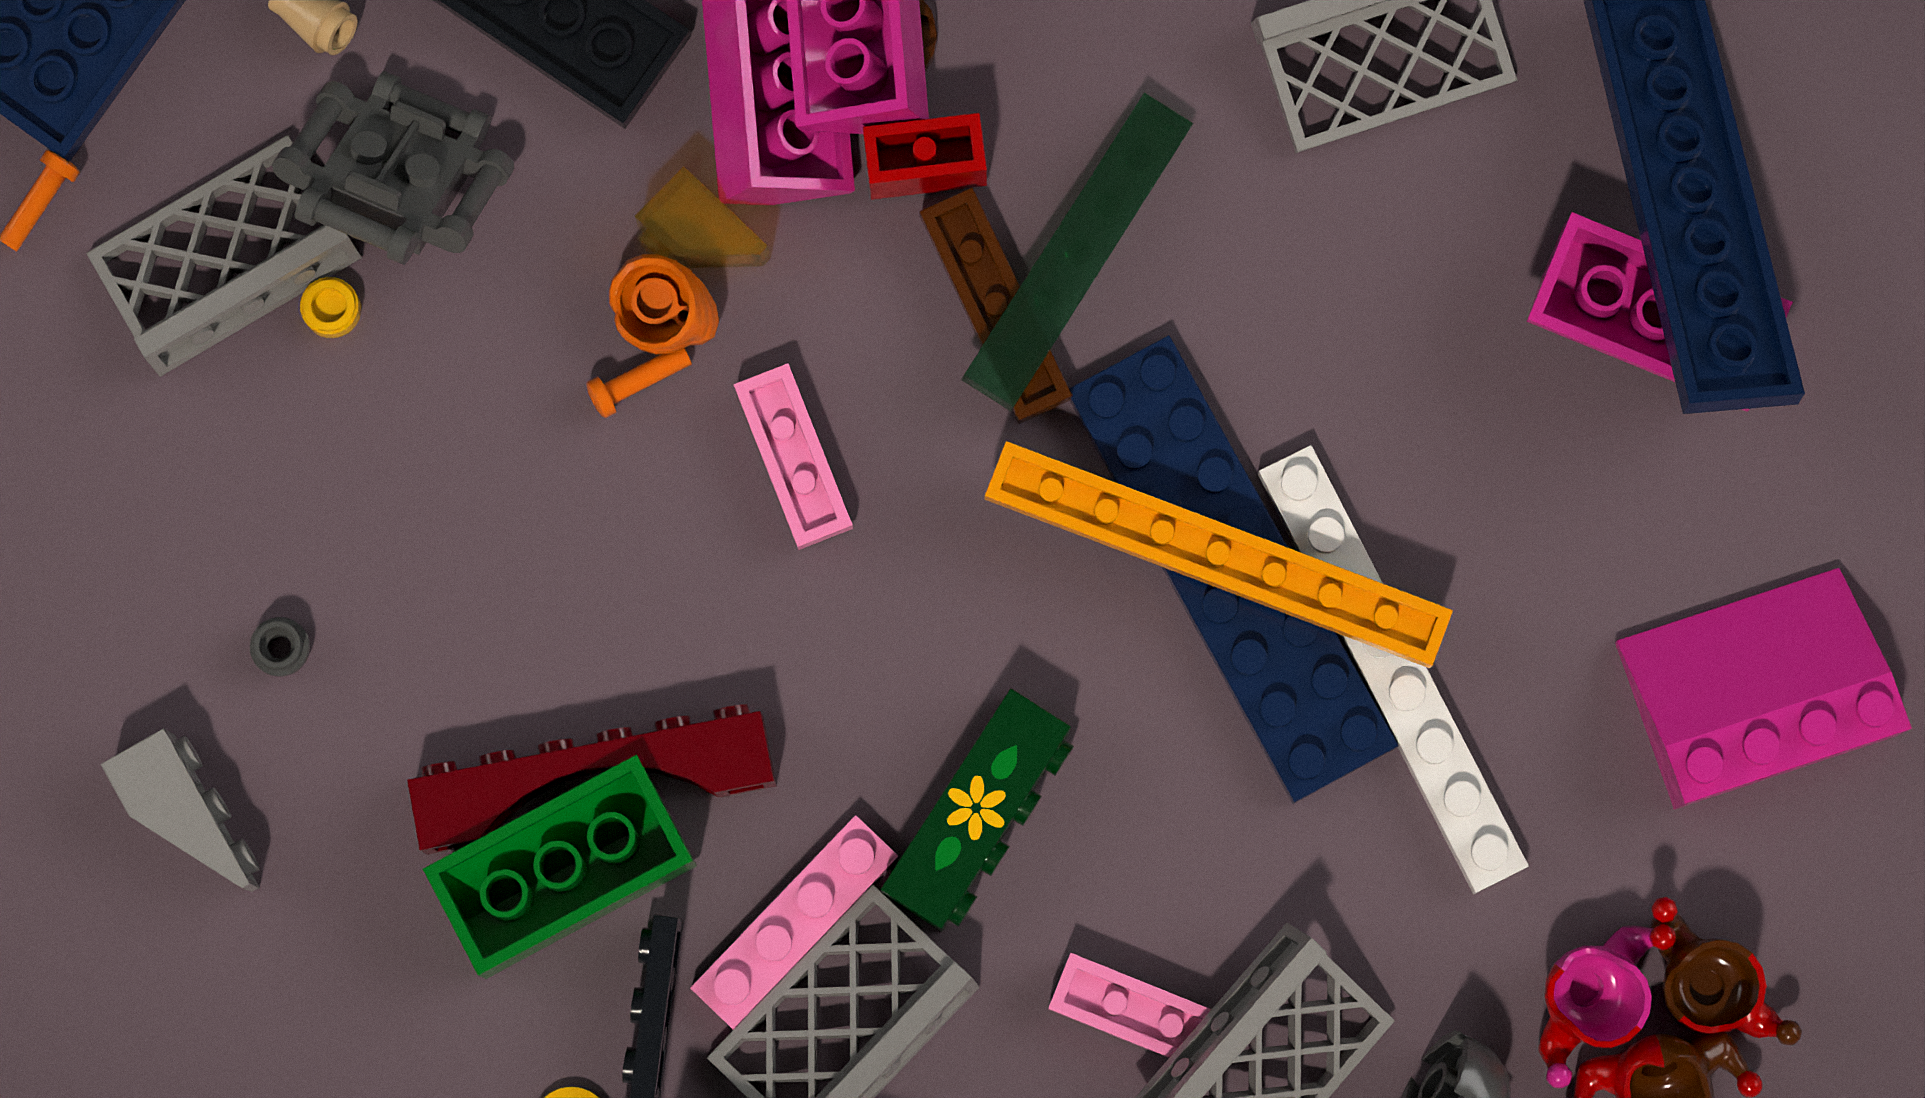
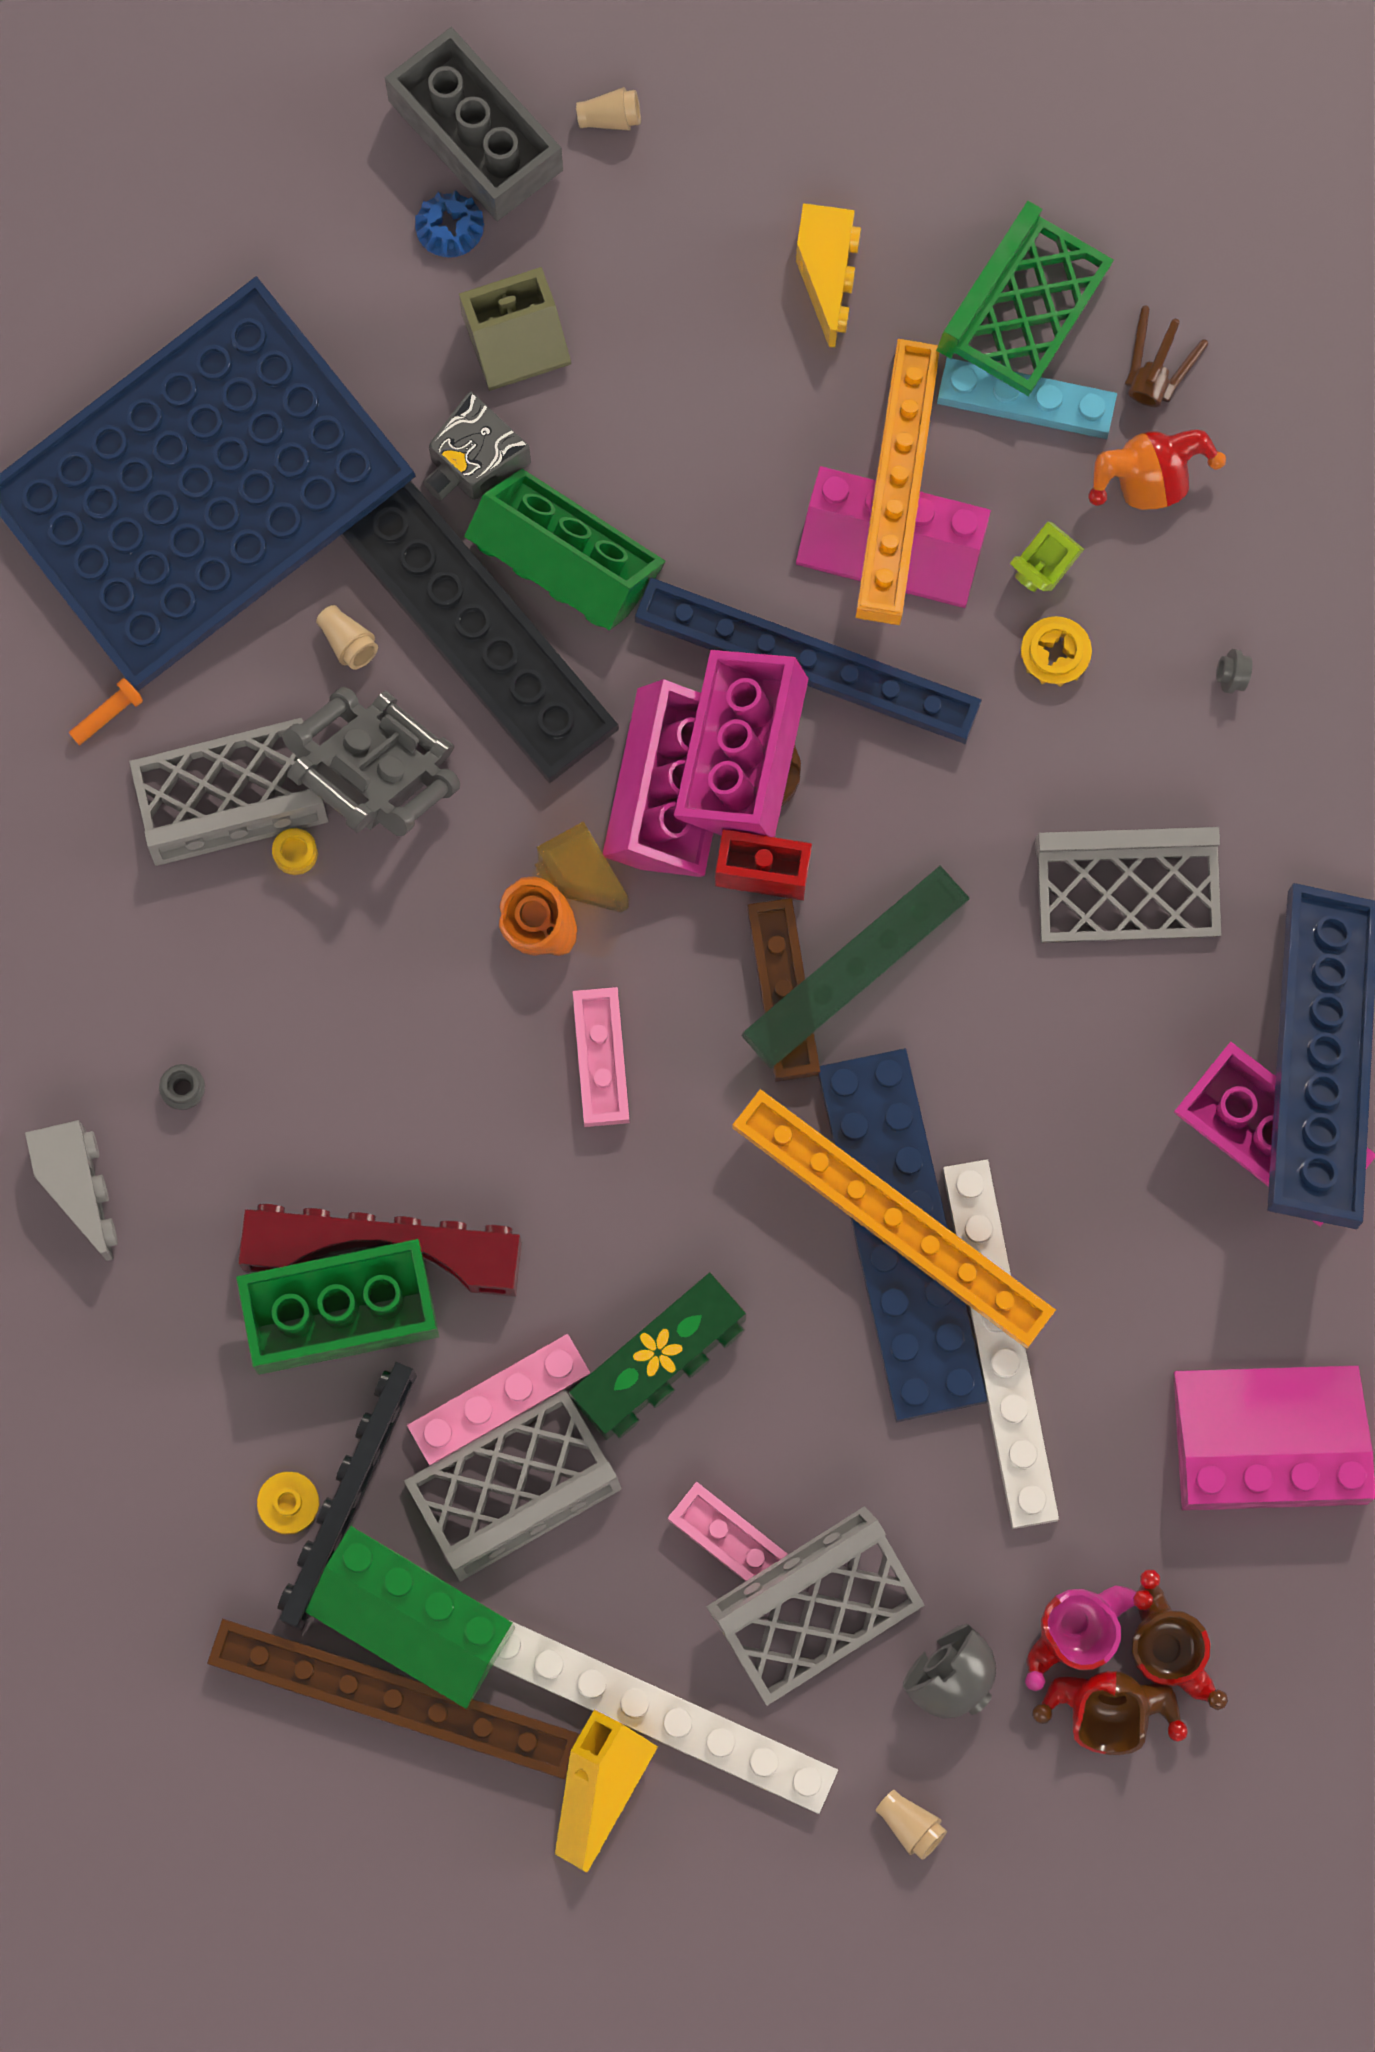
camera: 15 degrees right, 5 degrees down
(640, 377) = (499, 968): orange piece -> none

